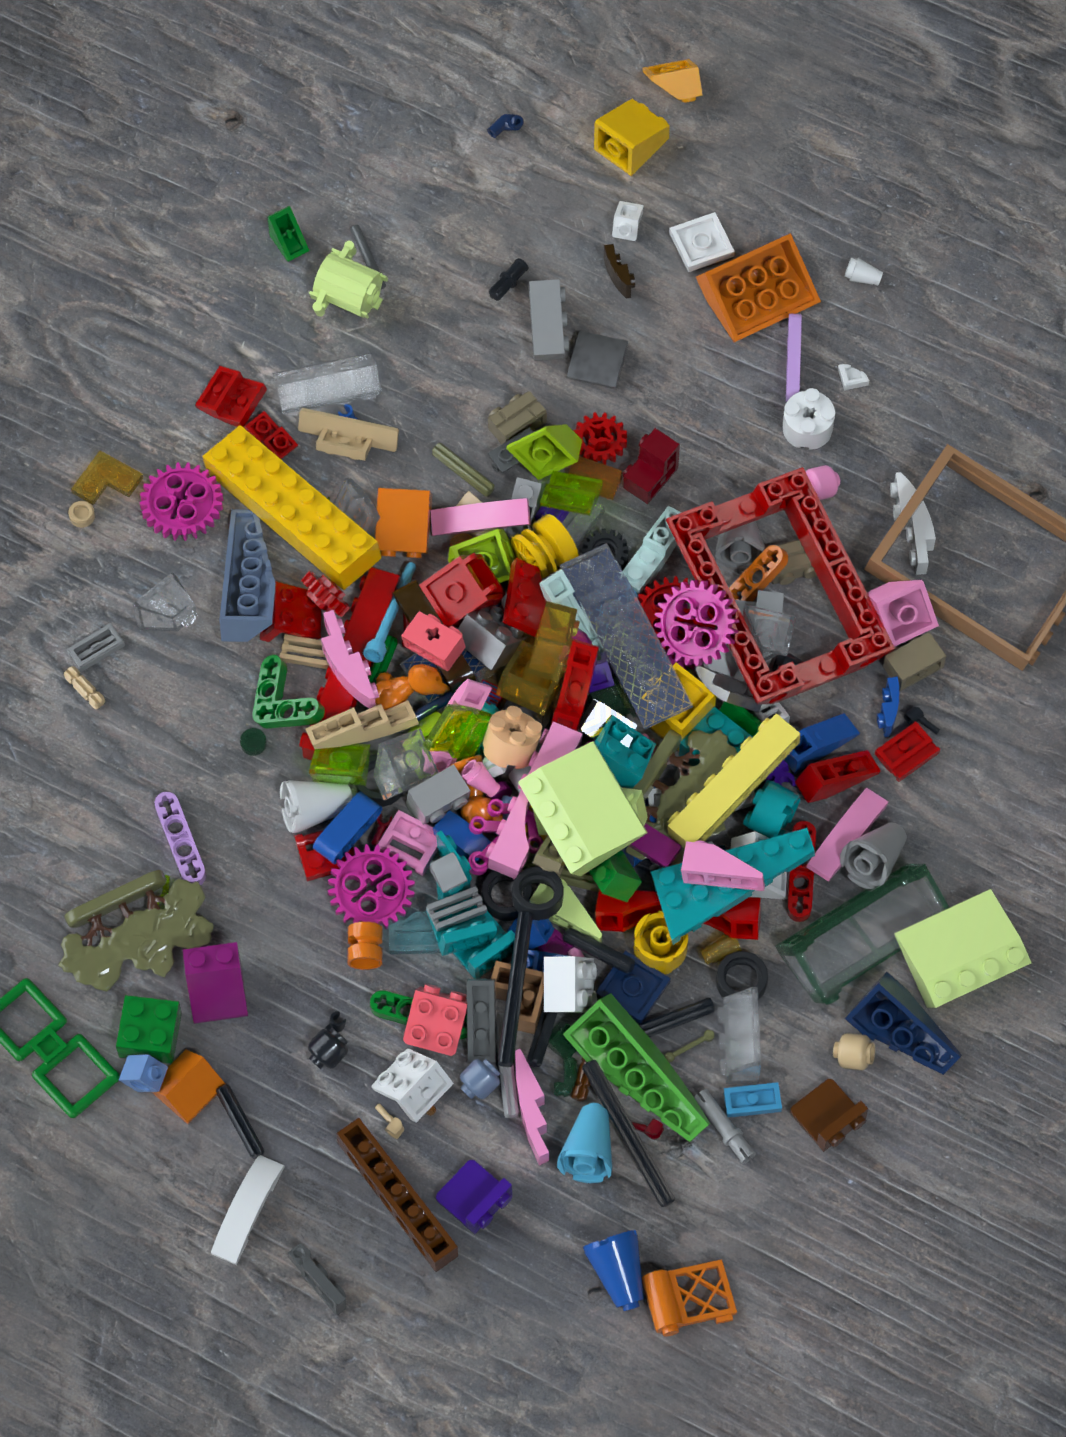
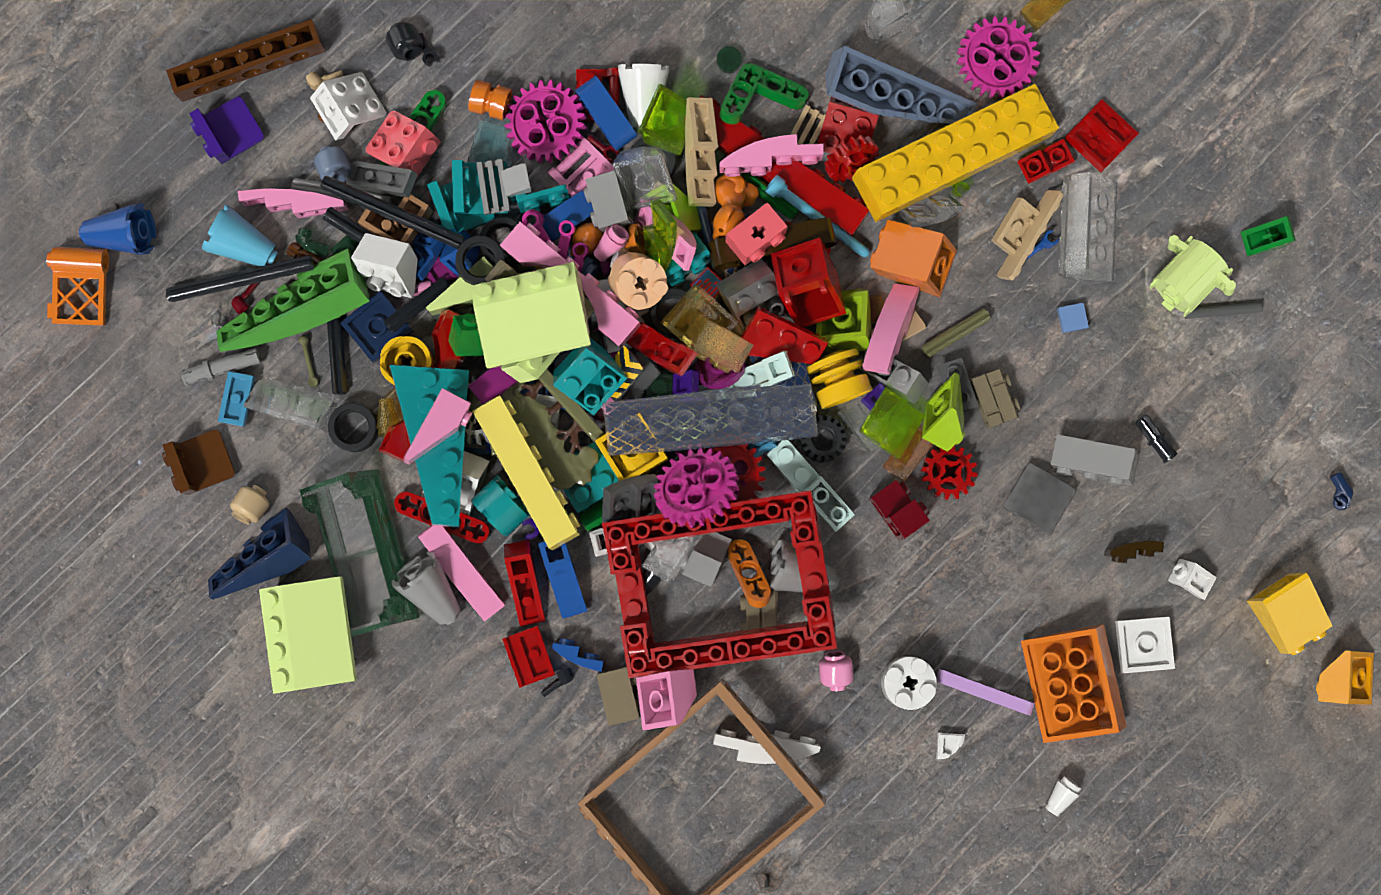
camera: 105 degrees right, 20 degrees up
(416, 376) = (1072, 318): none -> medium blue tile

